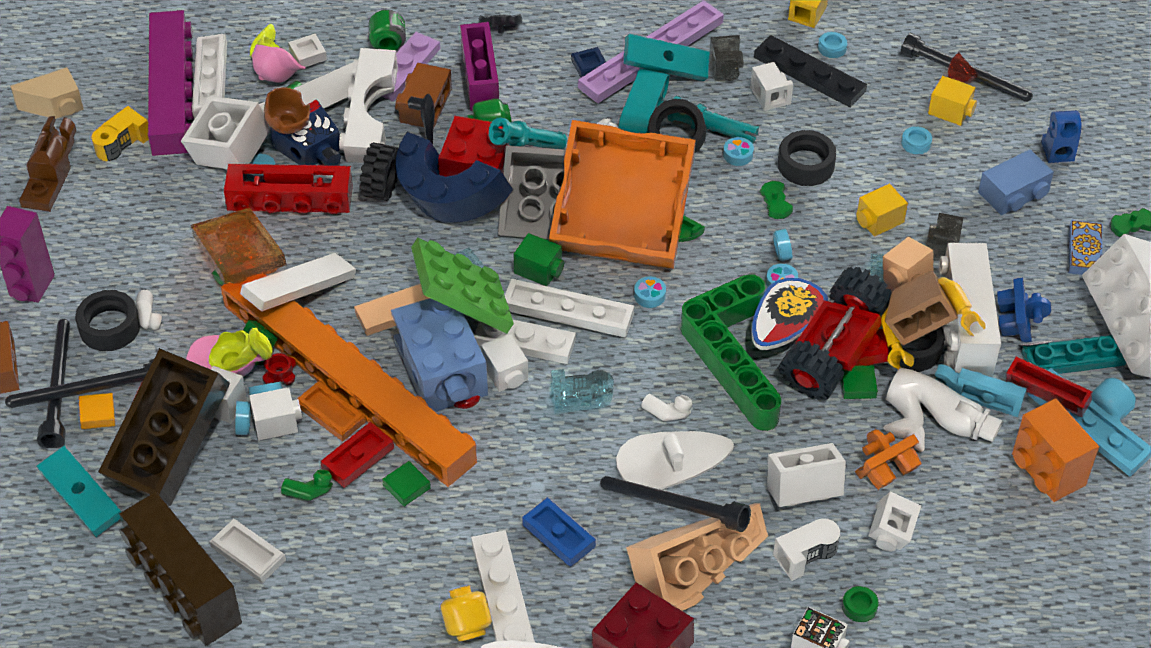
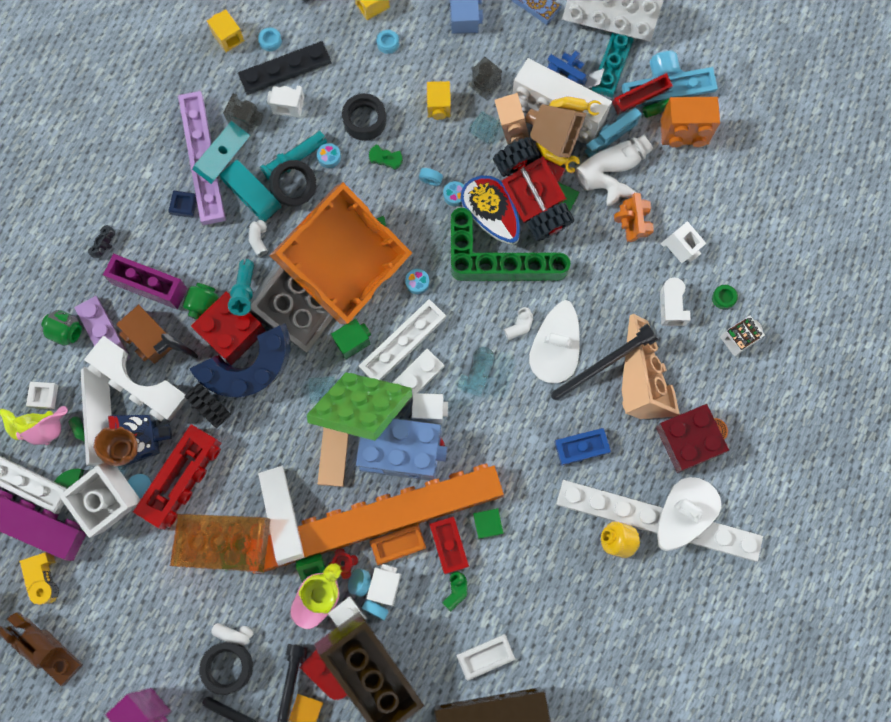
camera: 60 degrees left, 25 degrees up
(806, 475) = (626, 273): white brick -> none

